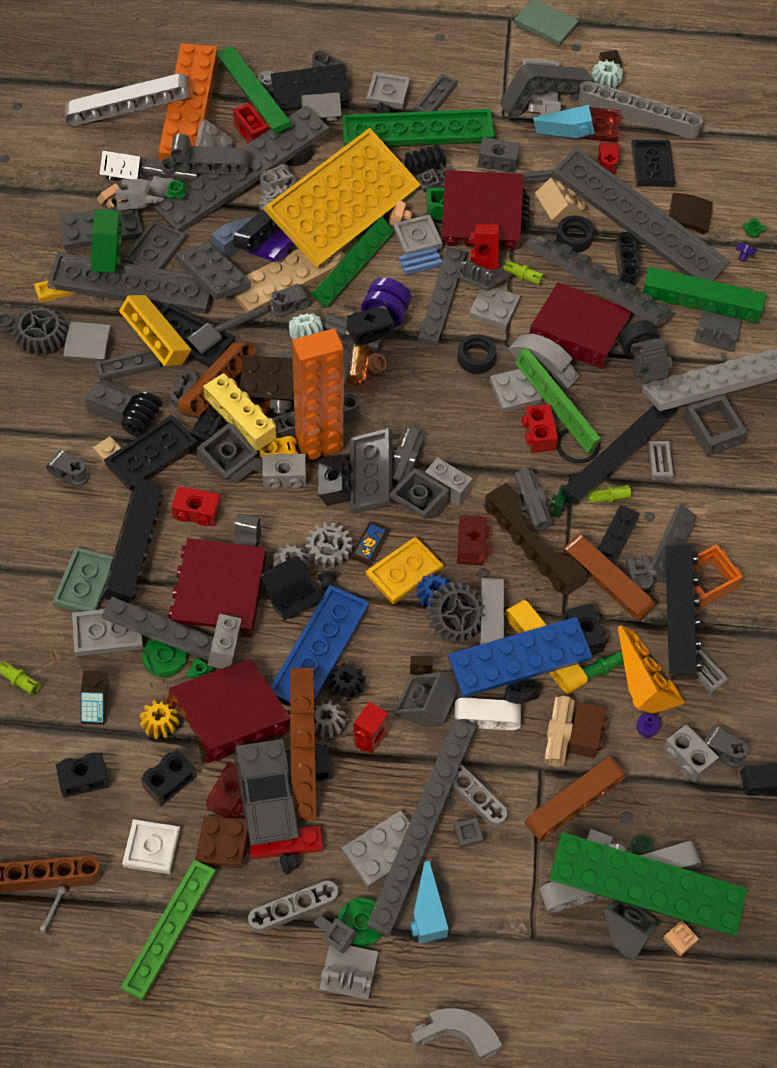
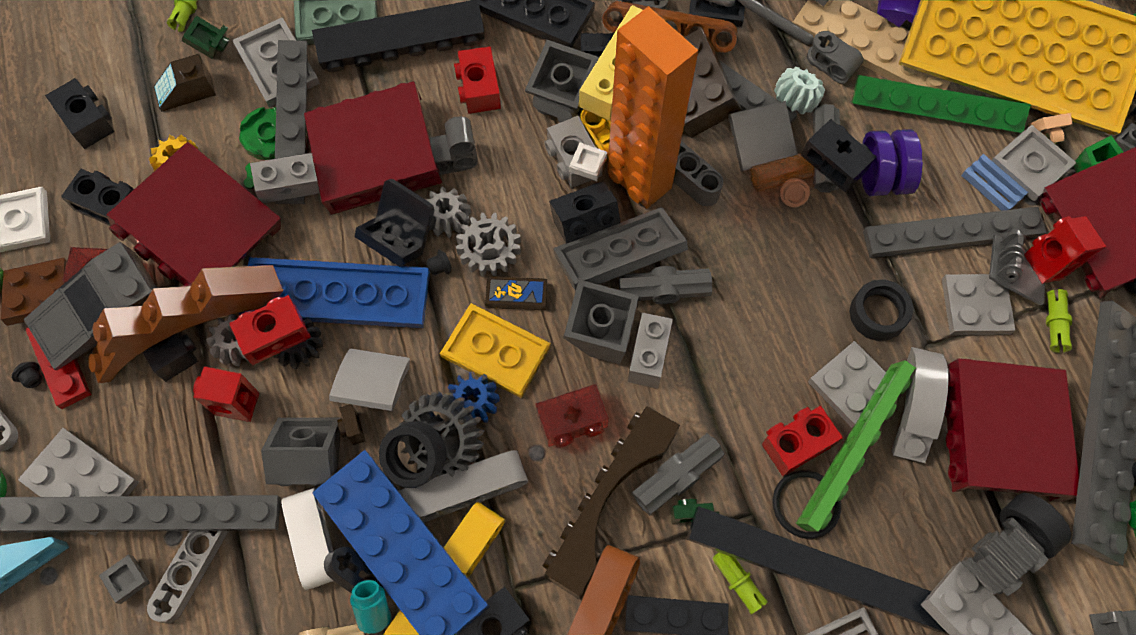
camera: 70 degrees right, 10 degrees up
(60, 669) = (206, 37): none -> dark green bracket
(302, 460) = (588, 161): none -> white tile
(342, 694) = (262, 345): none -> red brick
(395, 643) = (369, 379): none -> light grey slope
(481, 626) = (392, 464): none -> black tyre
(549, 684) = (370, 607): none -> teal brick

